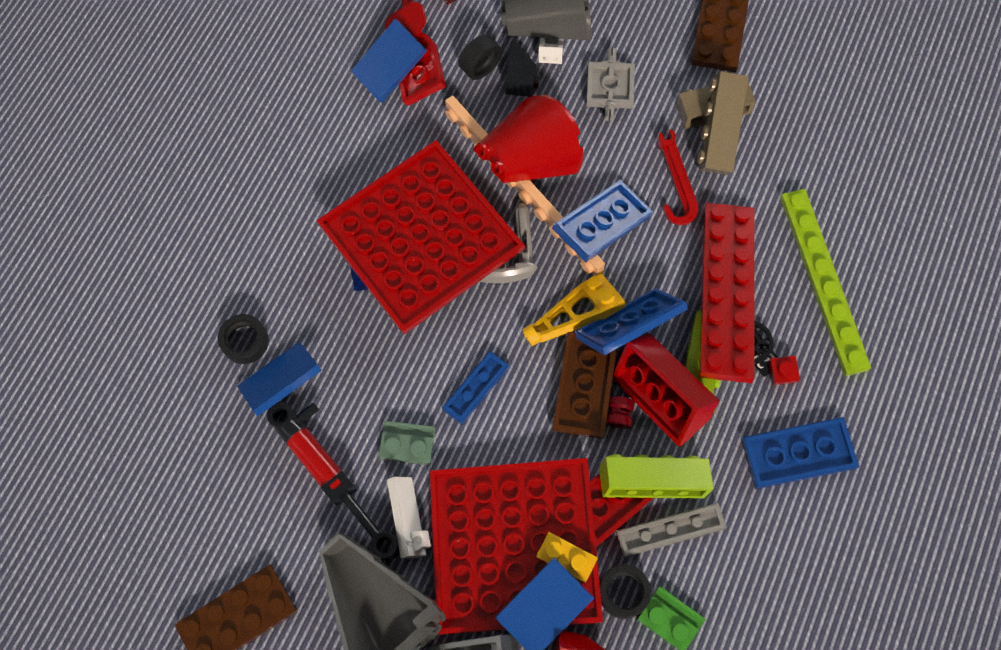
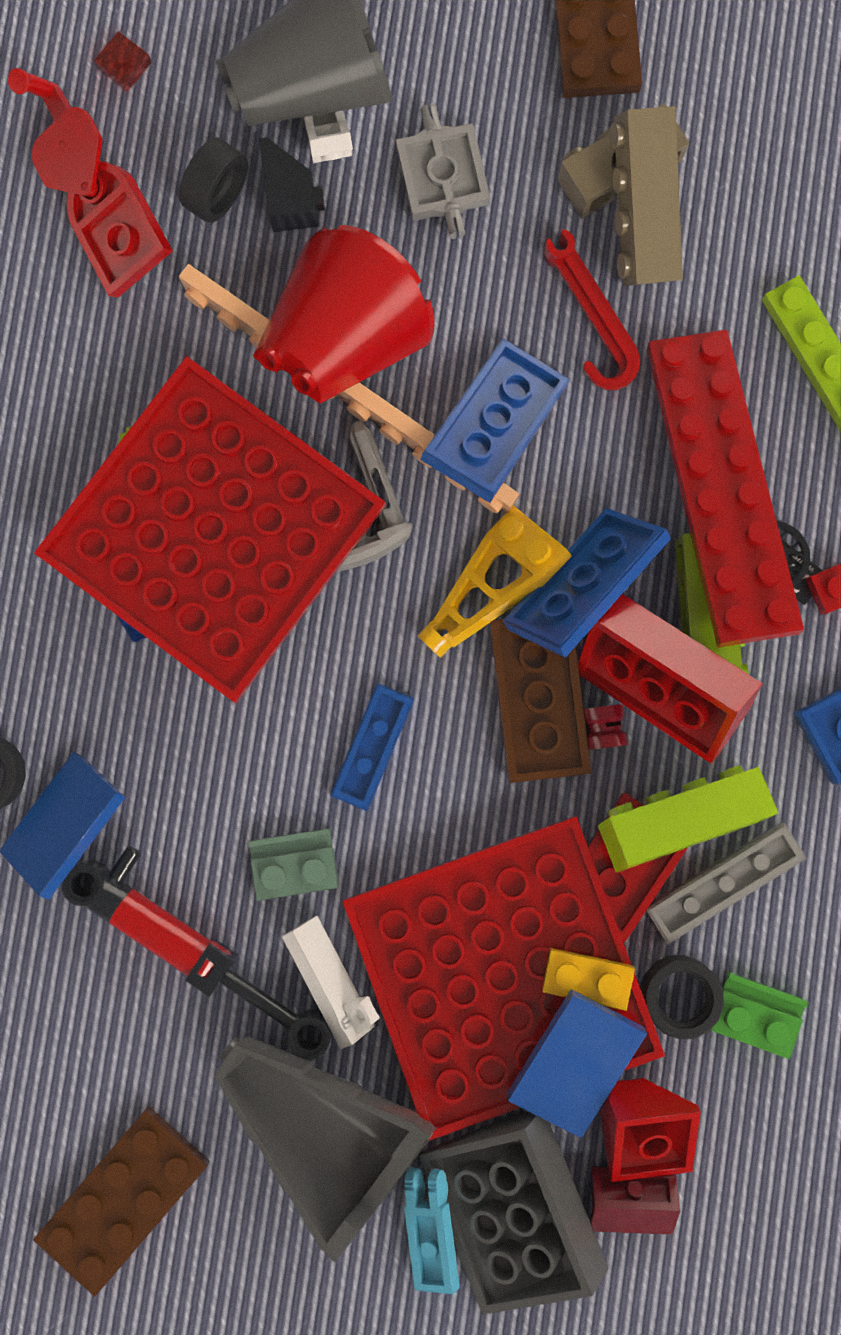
camera: 20 degrees left, 15 degrees up
(389, 60) = (61, 226): blue tile -> none

